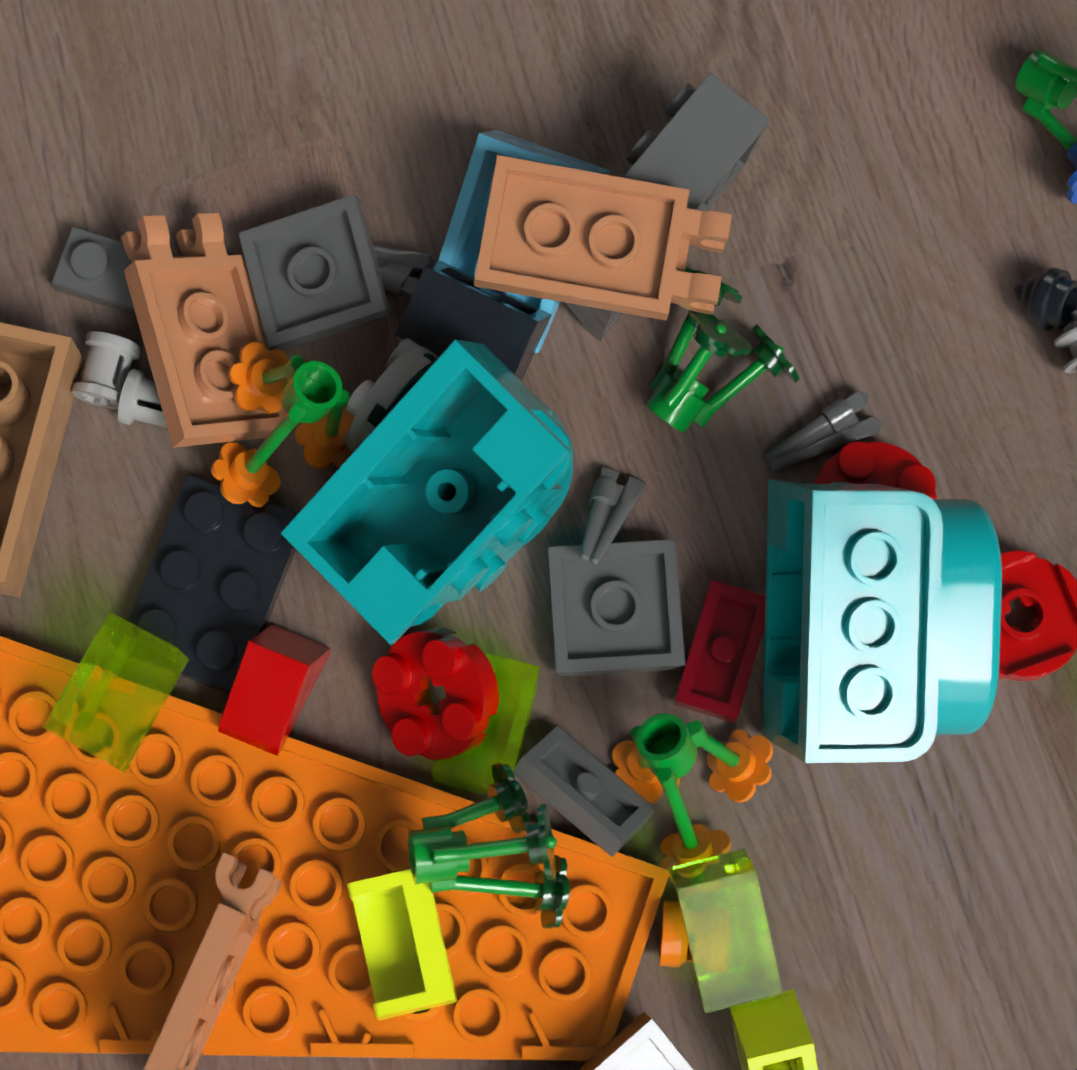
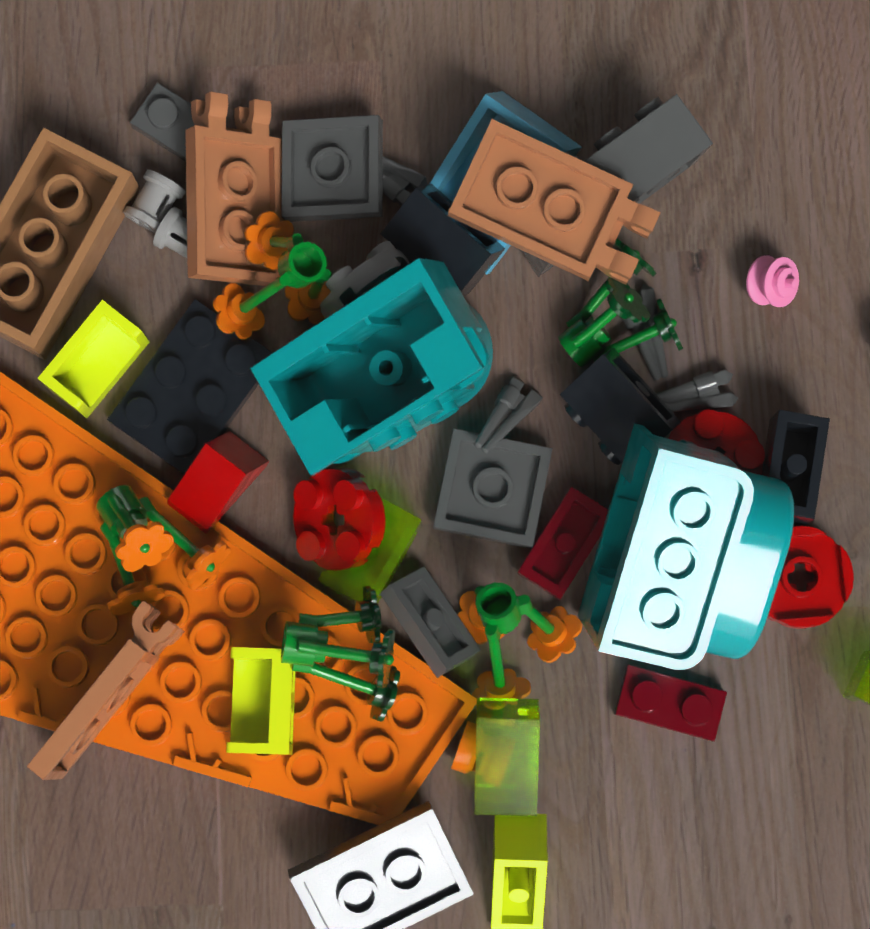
camera: 15 degrees right, 5 degrees up
(81, 578) = (94, 359): none -> neon yellow panel
(116, 692) = (96, 454): clear neon green panel -> none
(206, 785) = (142, 545): none -> plant
(732, 462) = (611, 400): none -> black brick
(761, 390) = (652, 349): none -> dark grey piece
(884, 270) = (772, 281): none -> bright pink wheel
(906, 813) = (670, 703): none -> dark red plate
(974, 464) = (796, 457): none -> black brick

